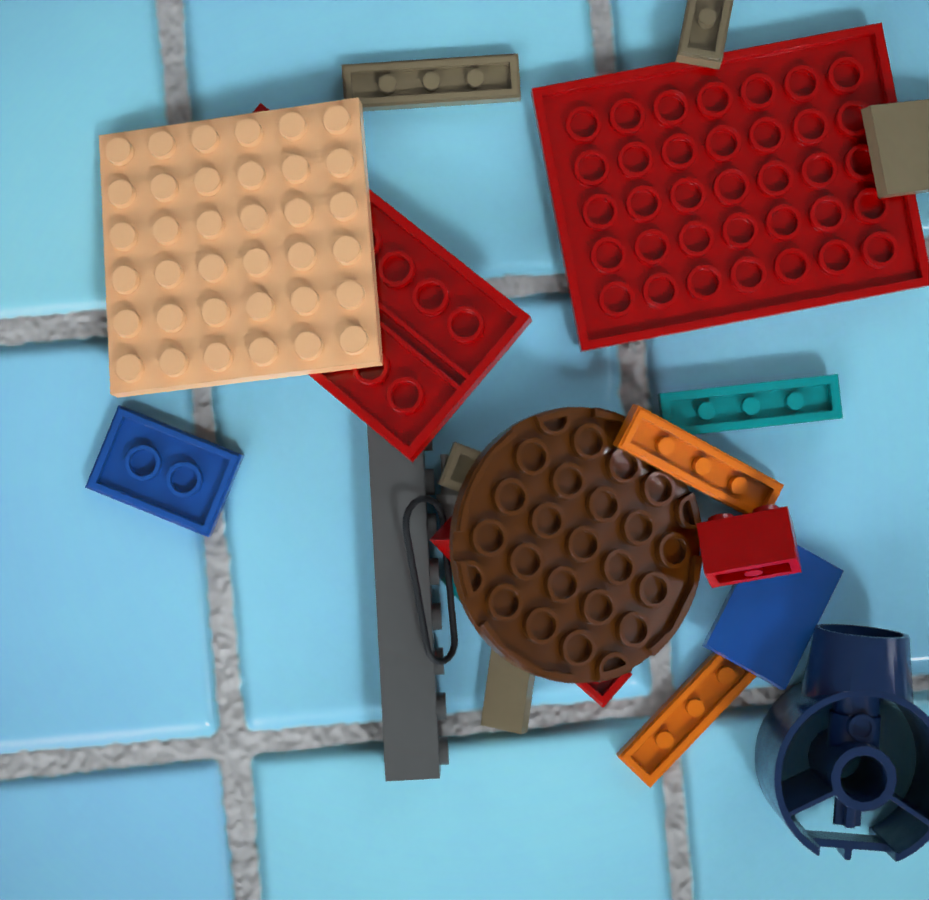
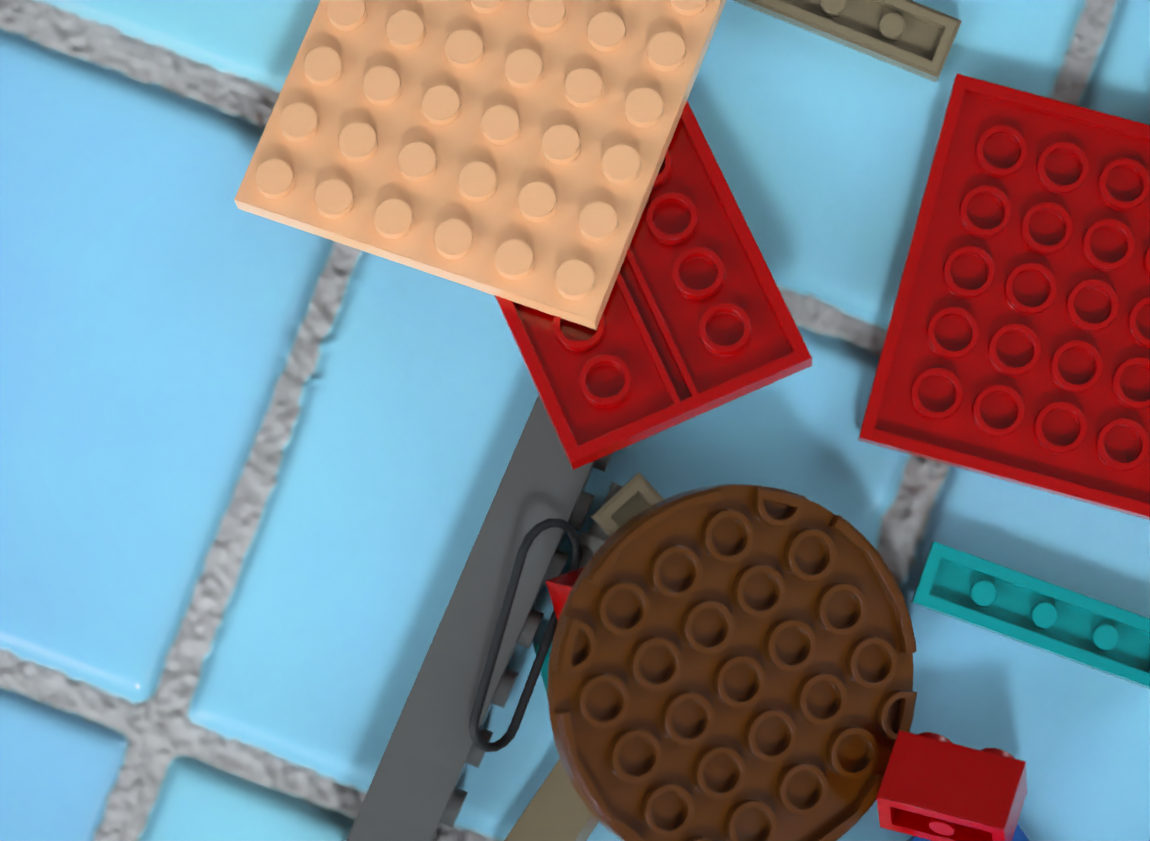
camera: 30 degrees right, 5 degrees down
(164, 471) = (248, 332): blue tile -> none
(695, 462) = (936, 650): orange tile -> none

